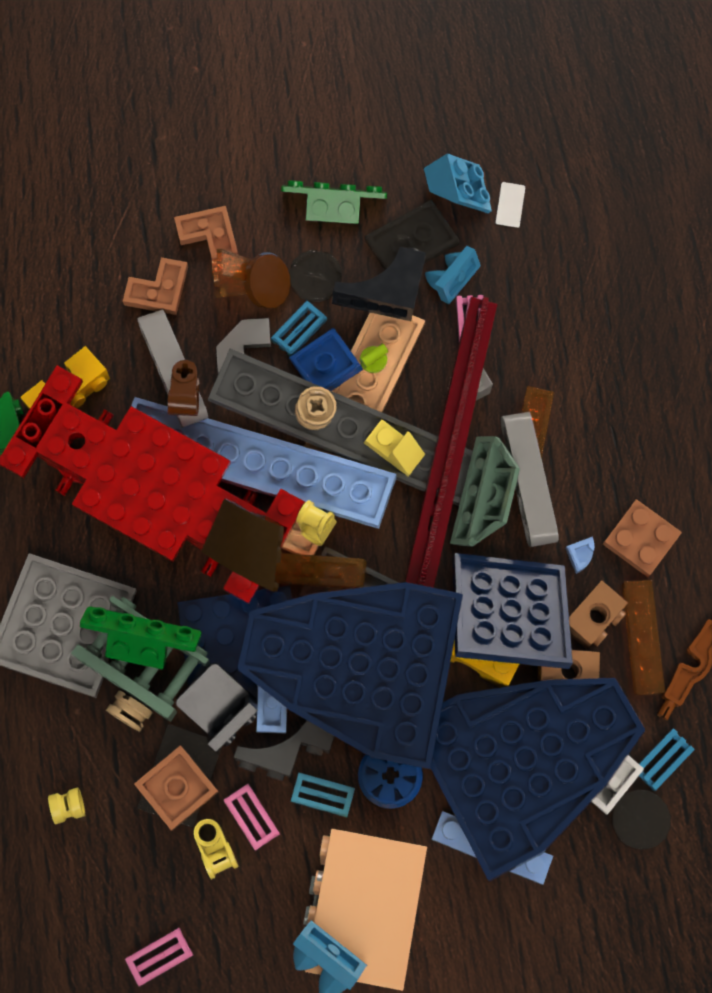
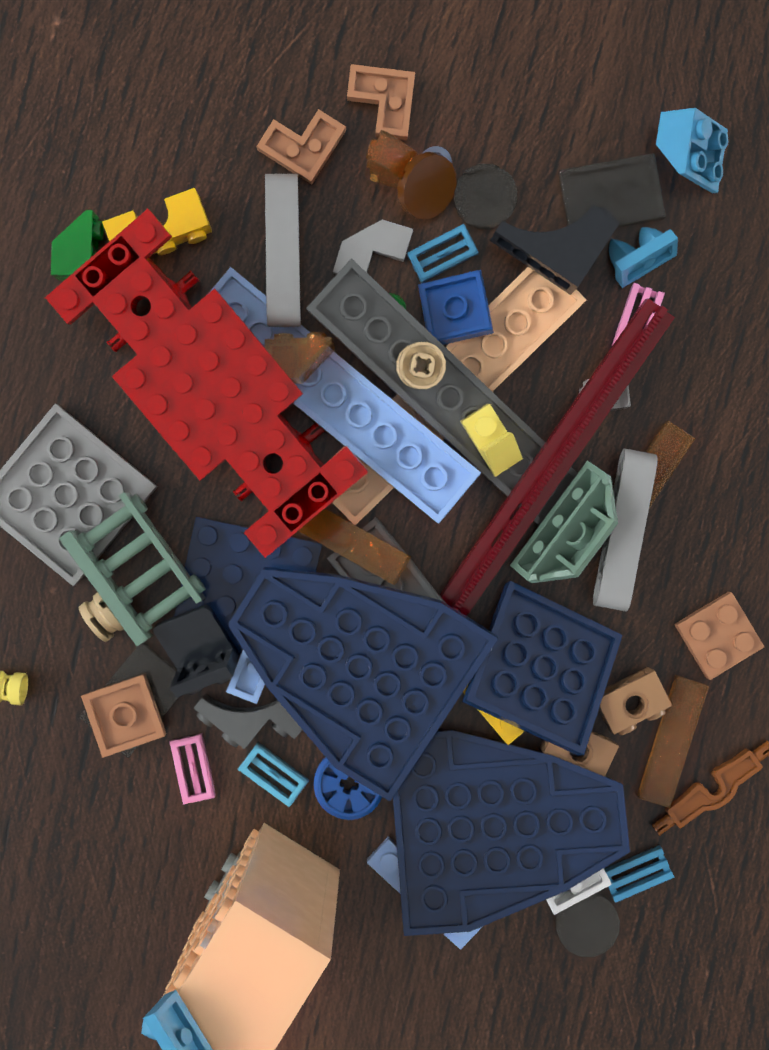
camera: 25 degrees right, 15 degrees up
(138, 638) = (136, 550): green bracket -> none
(181, 944) = (77, 865): bright pink tile -> none
(184, 392) = (280, 294): reddish brown piece -> none
(214, 850) = (142, 792): light yellow piece -> none
(218, 435) = (300, 355): none -> clear orange slope
(246, 544) = (283, 500): dark brown slope -> none
(315, 523) = (372, 493): light yellow piece -> none
(333, 203) = (539, 114): green bracket -> none
(374, 358) = (510, 325): lime plate -> none
(510, 204) = (742, 192): white sticker -> none
(581, 553) = (646, 627): light blue tile -> none

